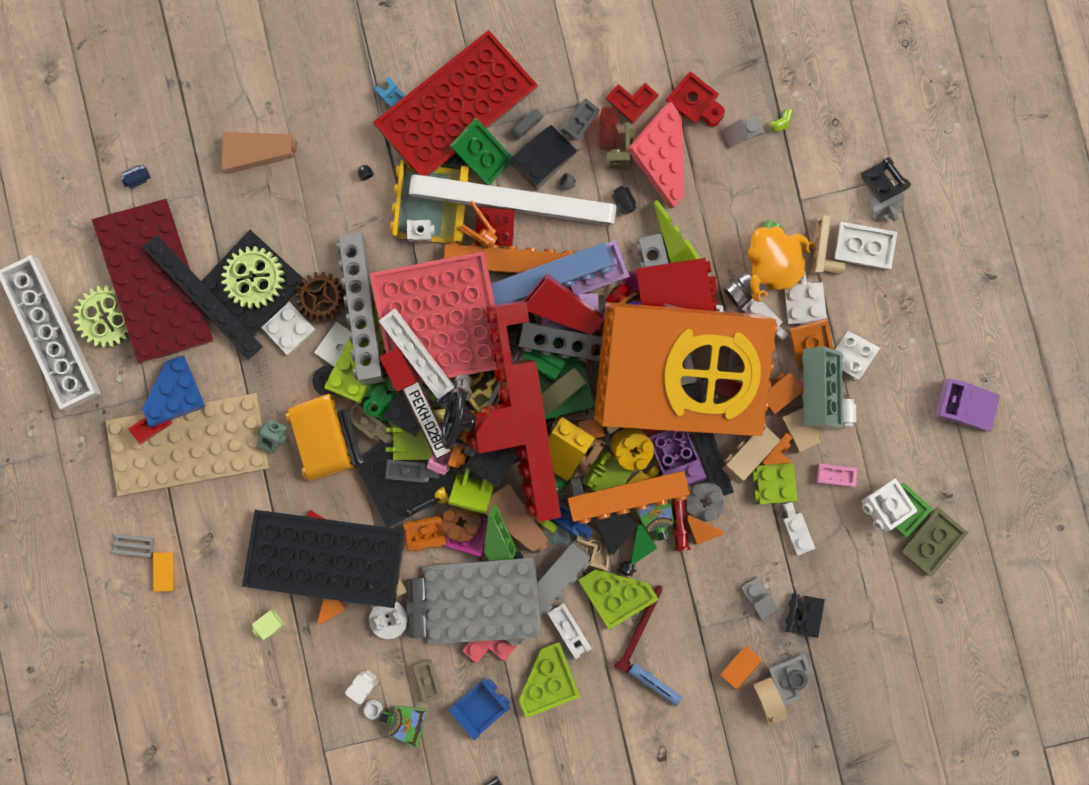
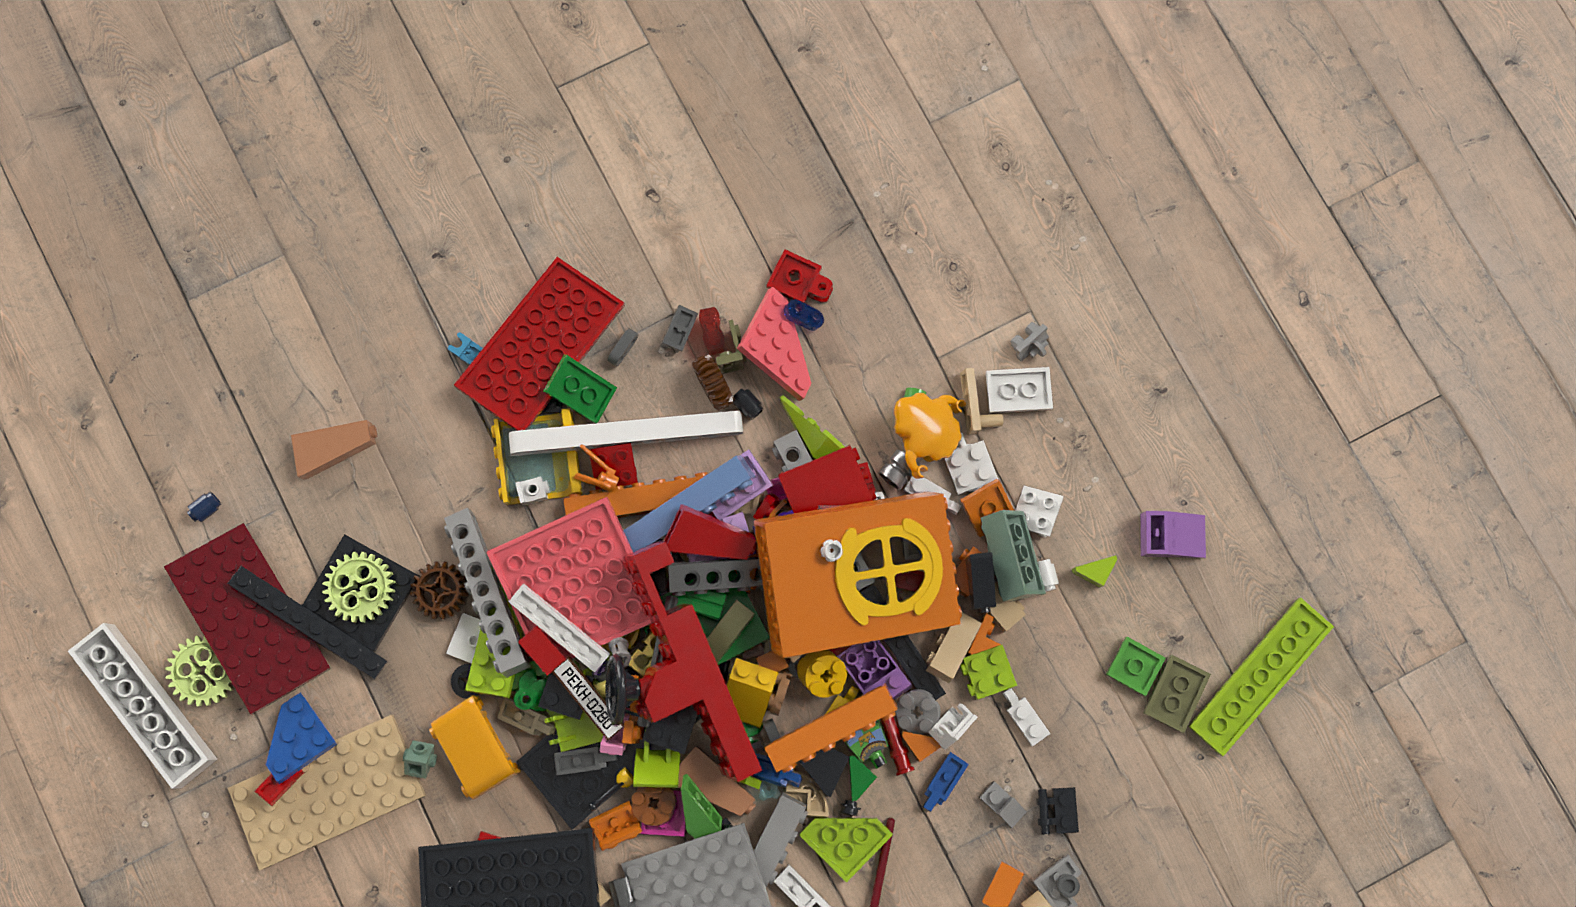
camera: 20 degrees left, 5 degrees down
(288, 328) = (411, 633): white plate -> none
(350, 437) = (507, 738): black axle -> none
(365, 172) = (458, 441): black hinge -> none
(543, 157) = (648, 378): black slope -> none
(567, 181) = (681, 398): dark grey hinge -> none
(598, 173) = (712, 382): none -> reddish brown gear
(606, 473) = (800, 707): lime hinge -> none
(632, 106) = (733, 300): red plate -> none
(672, 344) = (837, 550): none -> white plate
(693, 134) = (805, 316): none -> clear blue plate
(714, 566) = (944, 781): none -> blue hinge
(732, 521) = (952, 726): none -> white hinge
(742, 131) = (856, 299): light grey slope -> none
(783, 123) = (898, 280): lime arm -> none
(789, 403) = (981, 581): none -> black slope
(836, 475) = (1052, 646): bright pink plate -> none
(880, 183) = (1019, 321): black plate -> none
(888, 506) = (1117, 667): white plate -> none
(892, 420) = (1097, 571): none -> lime slope
(1011, 545) = (1260, 676): none -> lime plate

